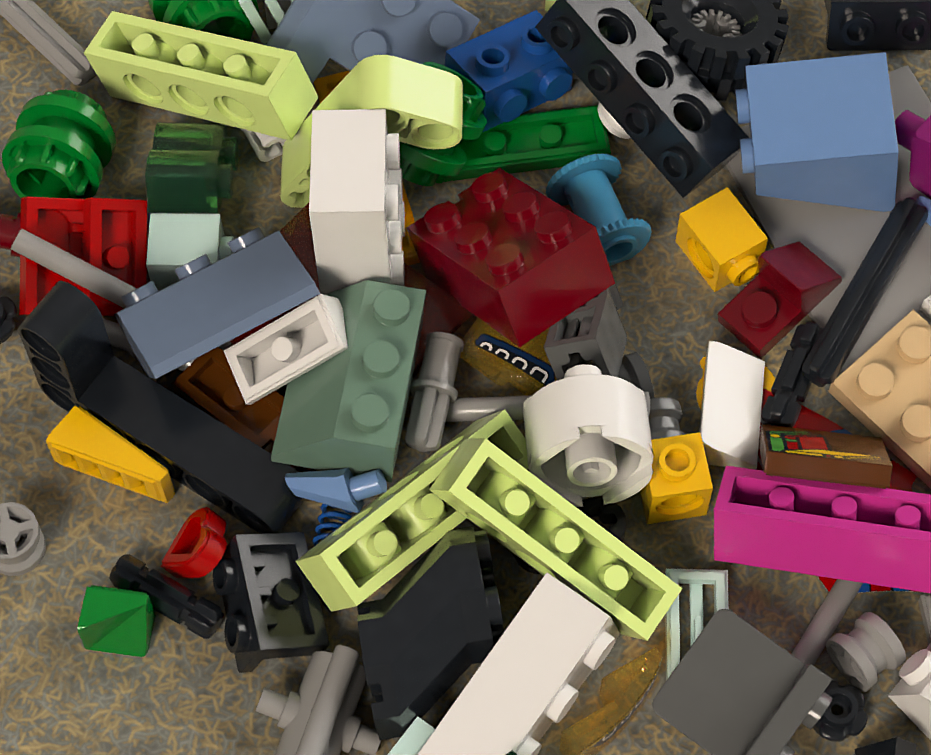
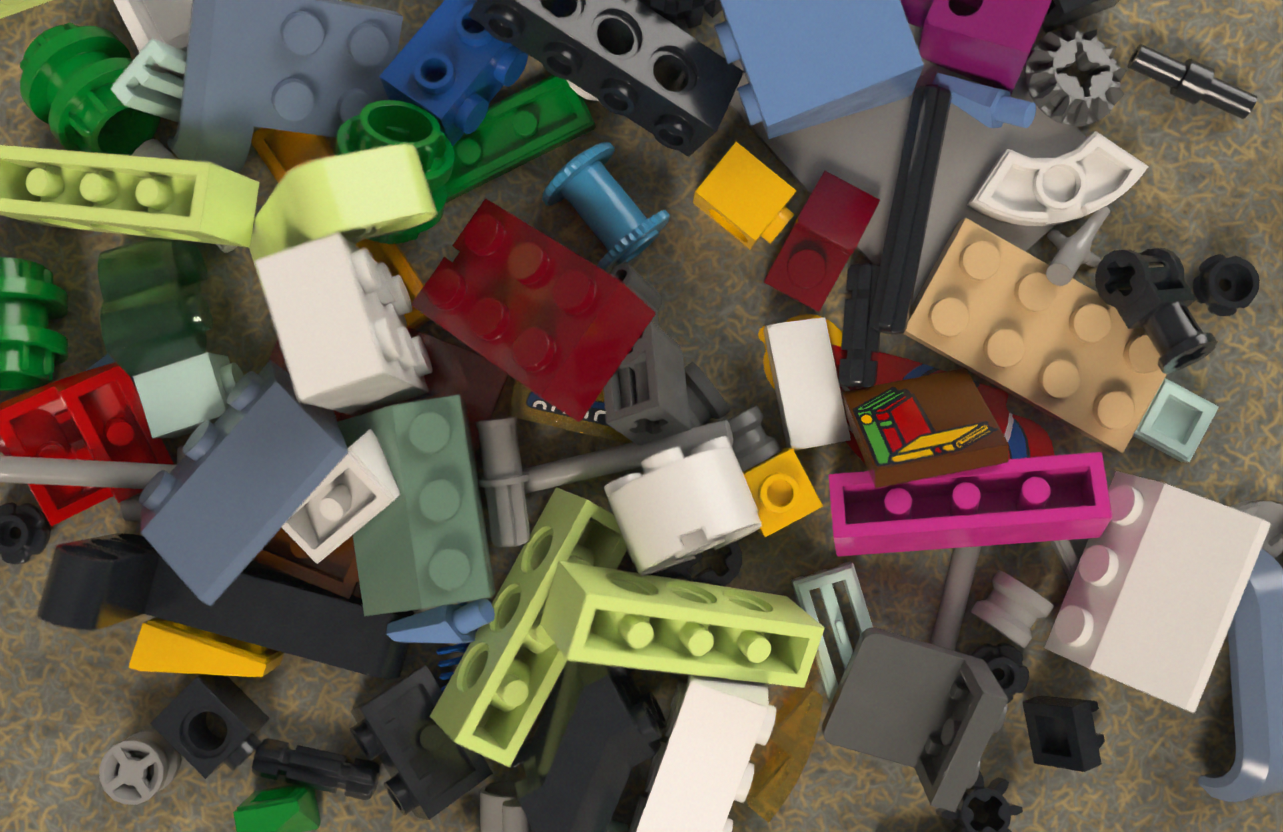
camera: 15 degrees left, 25 degrees up
(90, 496) = (186, 728): none -> black brick
(197, 545) = (326, 716): red tile -> none

